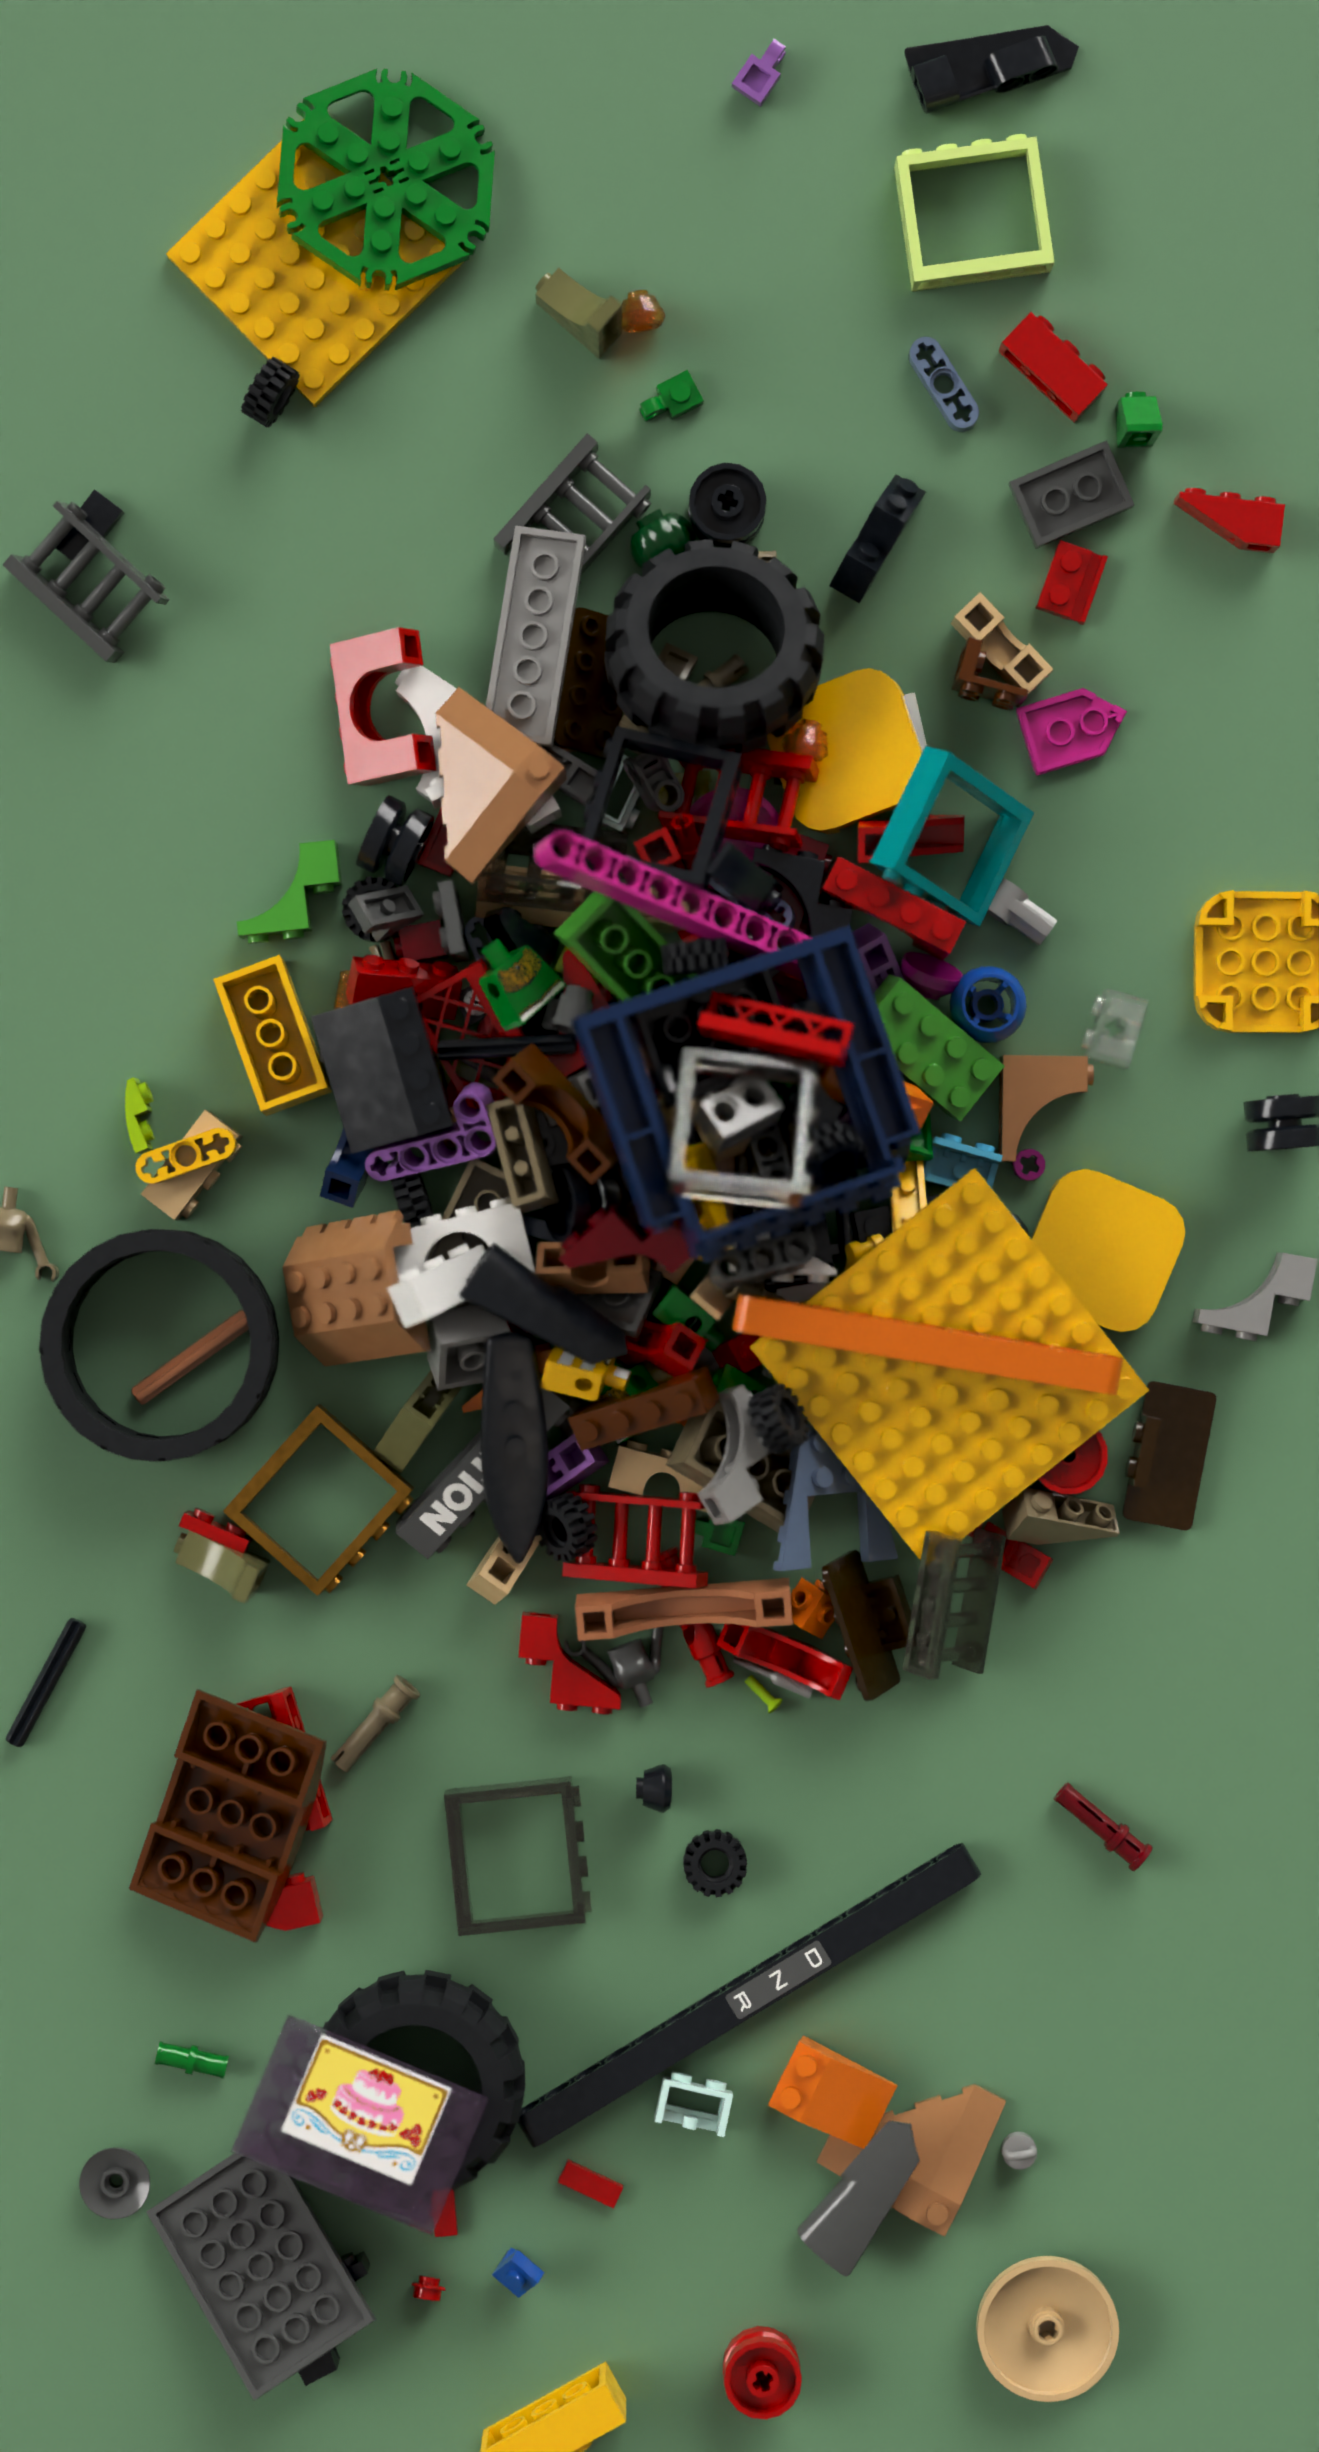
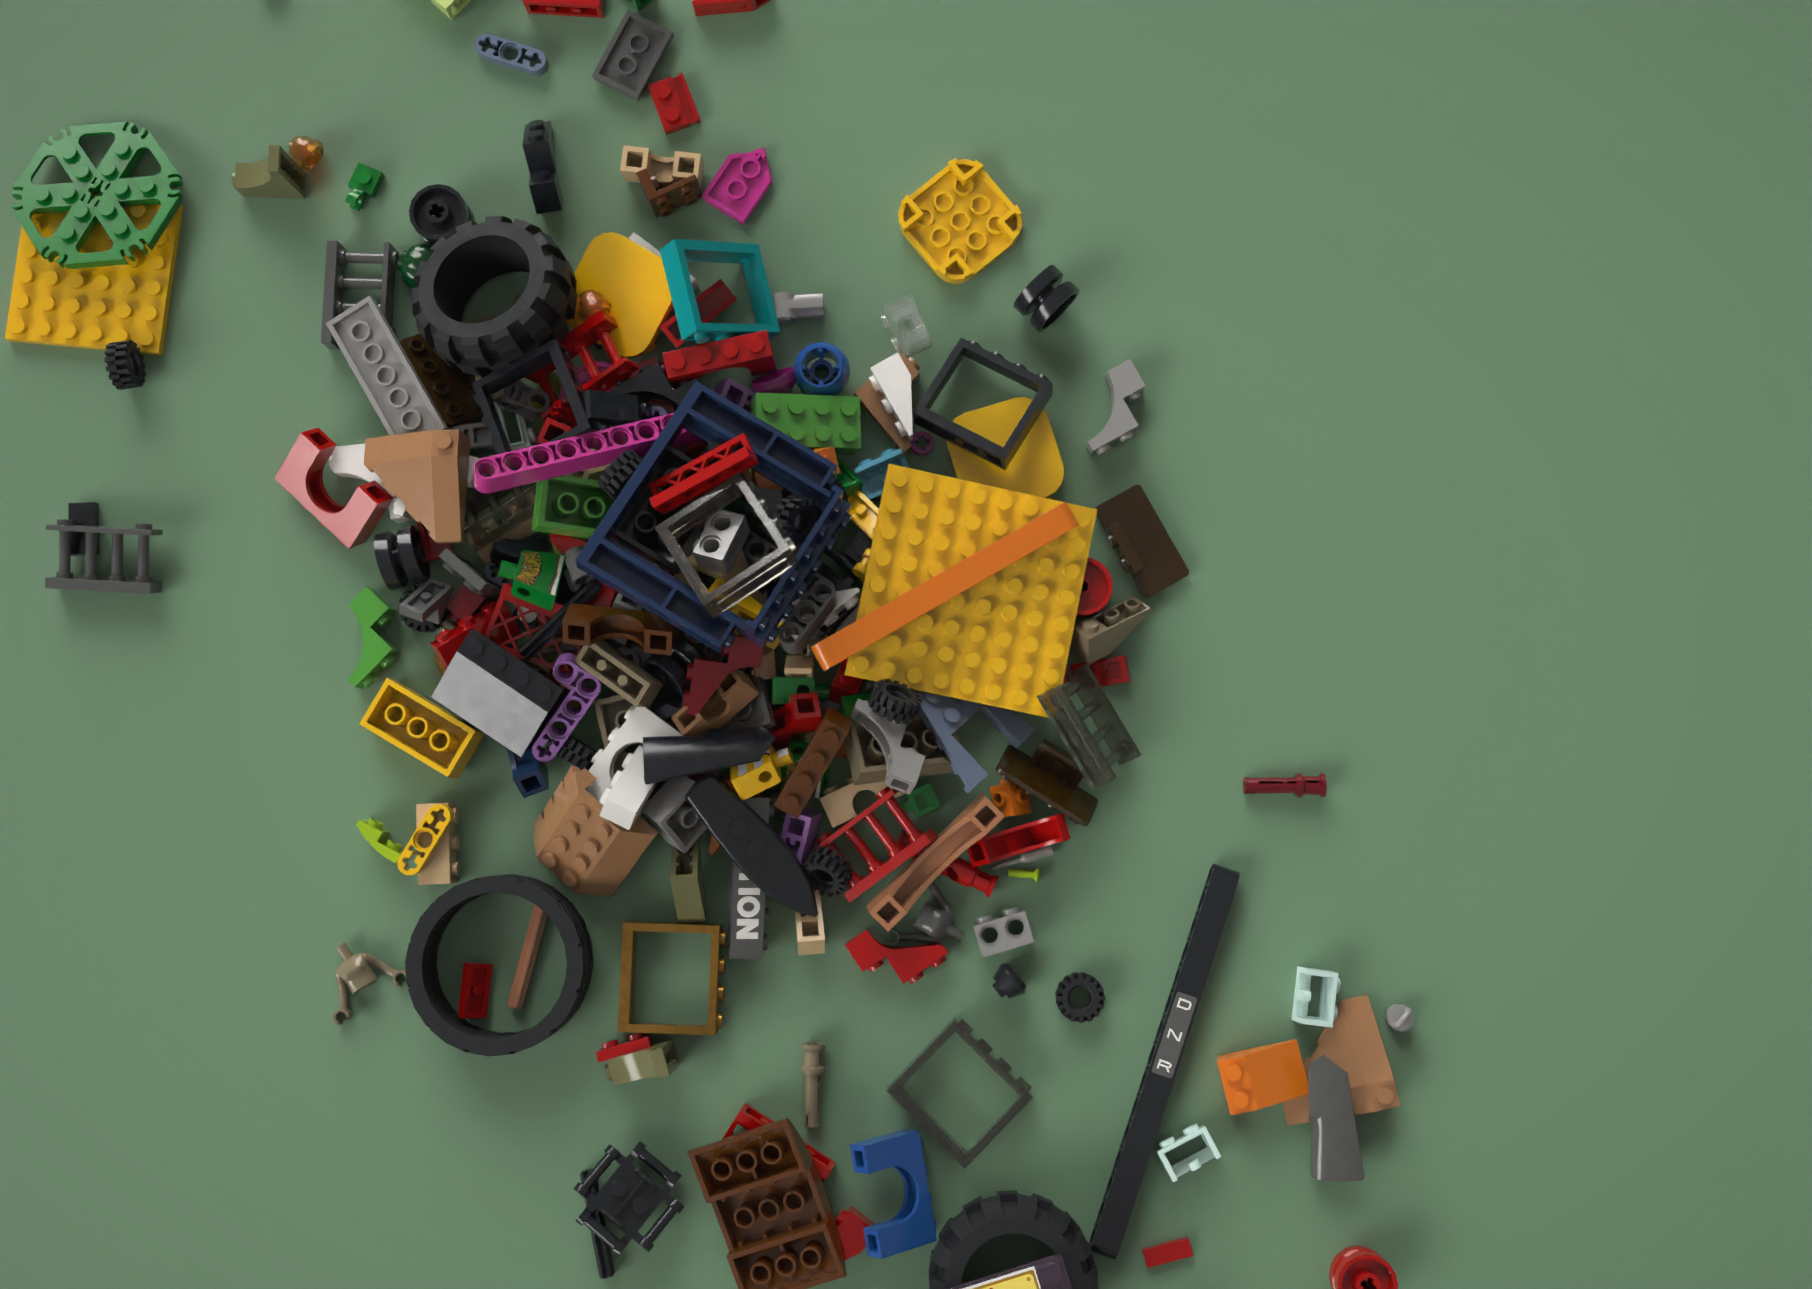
camera: 35 degrees left, 5 degrees down
(99, 1685) = (628, 1198): none -> black brick
(111, 1347) = (475, 990): none -> red plate
(365, 1944) = (914, 1222): none -> blue arch
(687, 1742) = (1004, 939): none -> light grey brick
(954, 2081) = (1302, 995): none -> light aqua window
(1047, 2328) = (1507, 1110): tan dish -> none
(1051, 1087) = (895, 385): none -> white slope
(1076, 1200) = (965, 438): none -> black window

